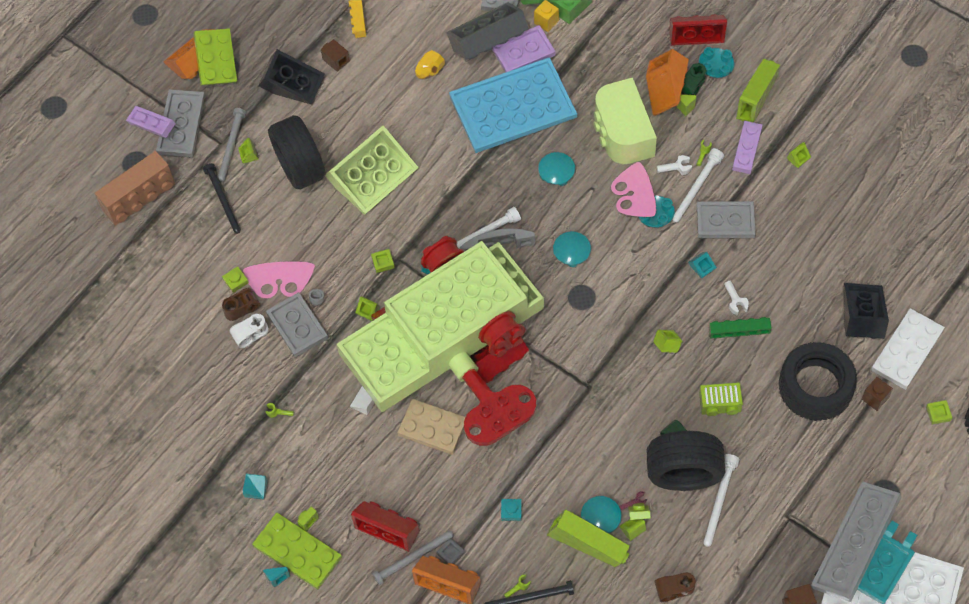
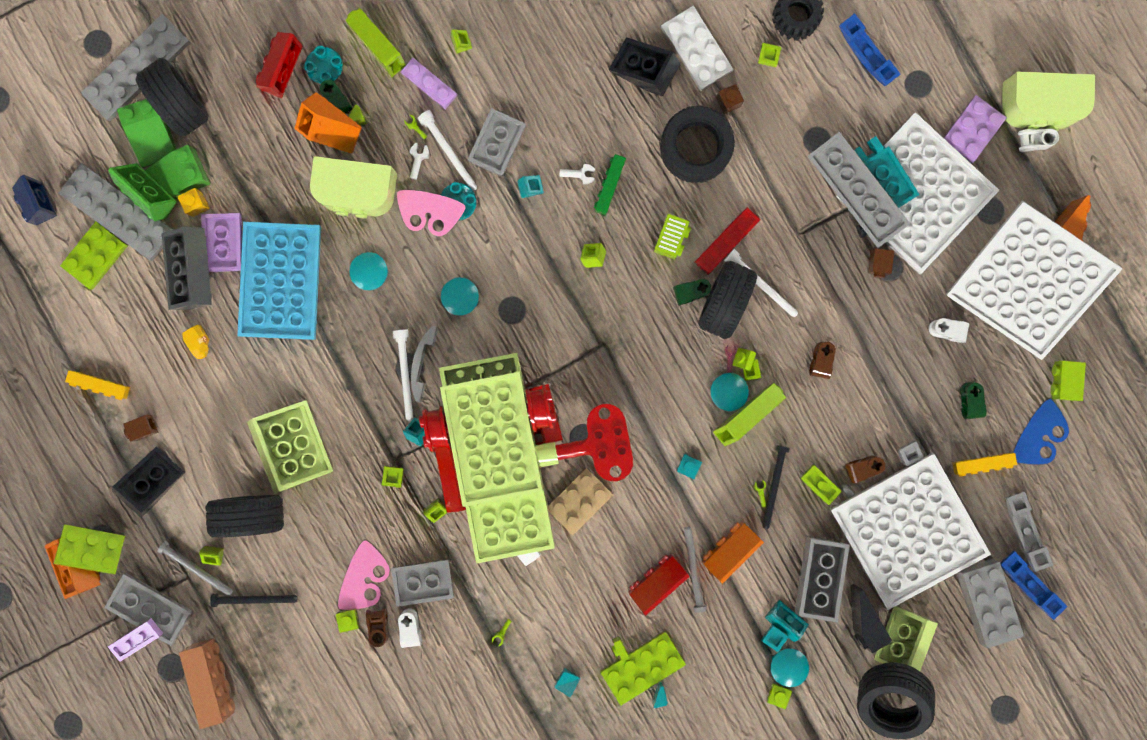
camera: 70 degrees left, 25 degrees up
(316, 297) = (400, 550): light grey hinge -> none
(451, 552) = (704, 535): flat silver tile -> none
(752, 454) = (727, 241): none -> red tile

